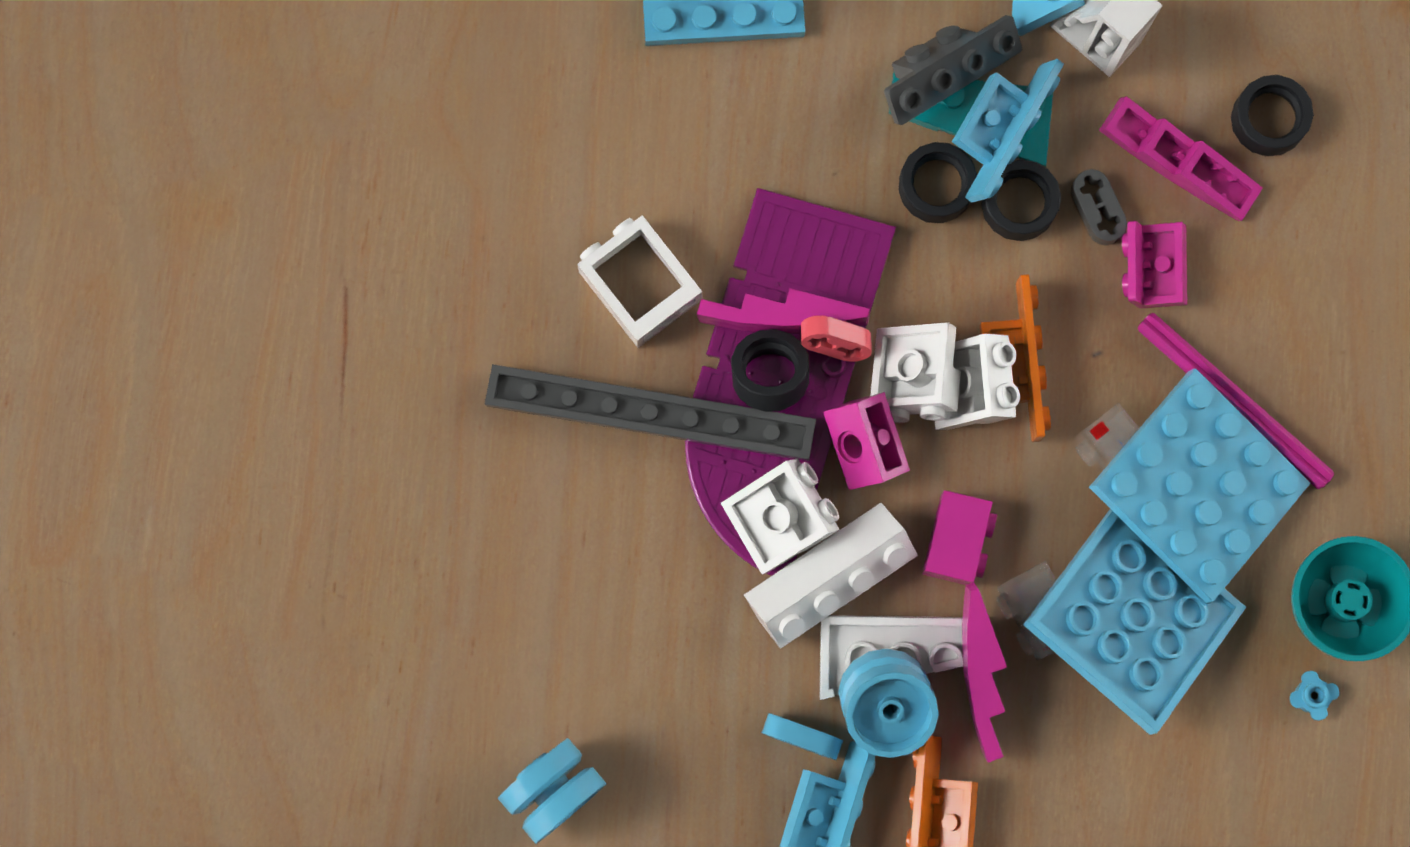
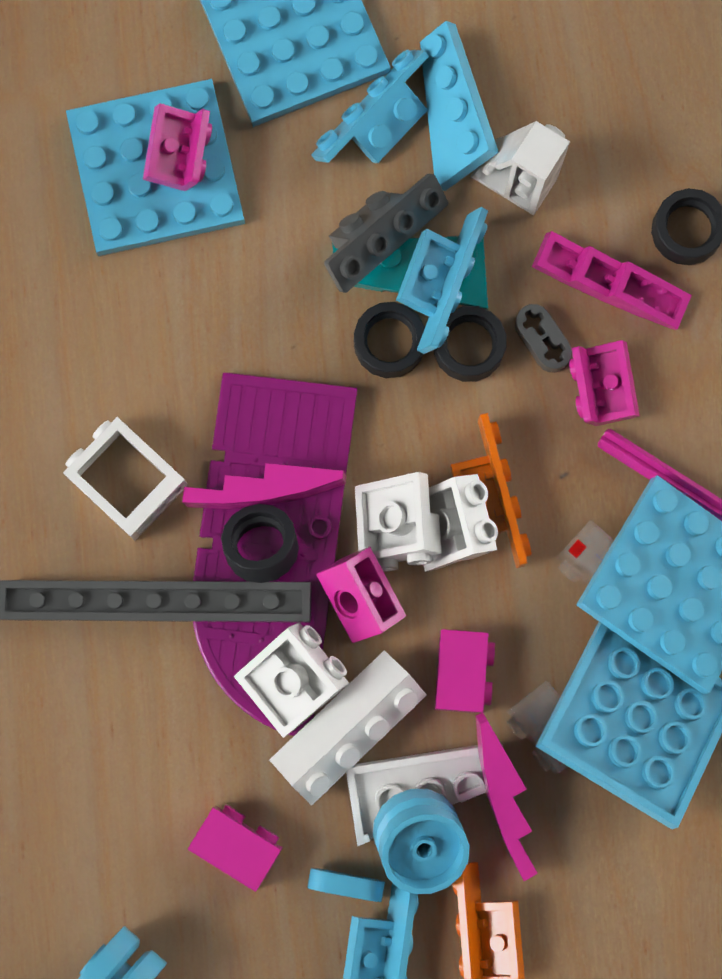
camera: 10 degrees left, 0 degrees up
(695, 678) = (236, 847): none -> dark pink brick
(836, 338) = (316, 503): coral beam -> none

